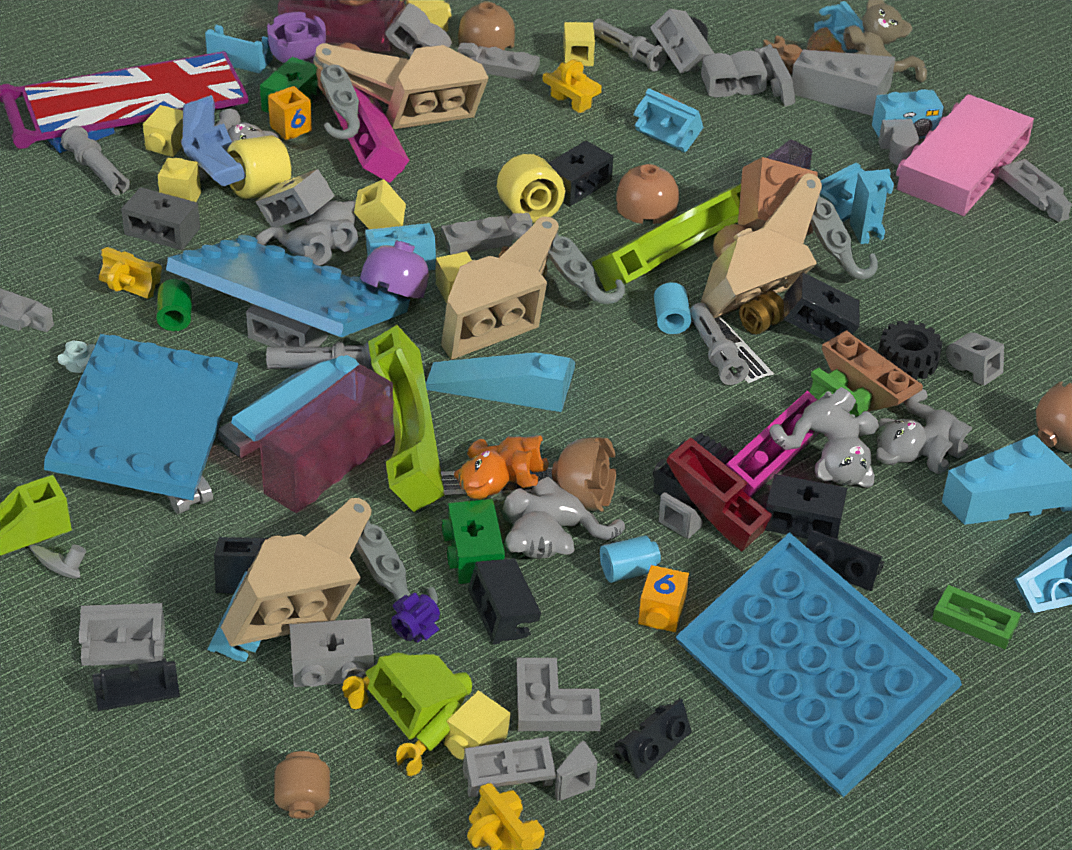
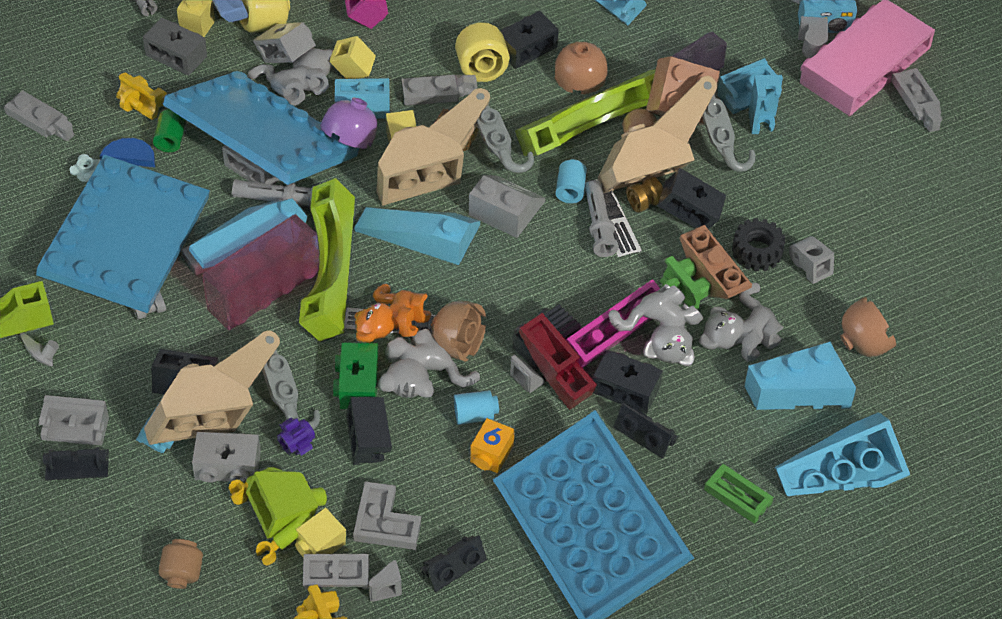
camera: 10 degrees right, 10 degrees up
(131, 329) = (131, 151): none -> blue tile
(599, 341) = (503, 204): none -> light grey slope

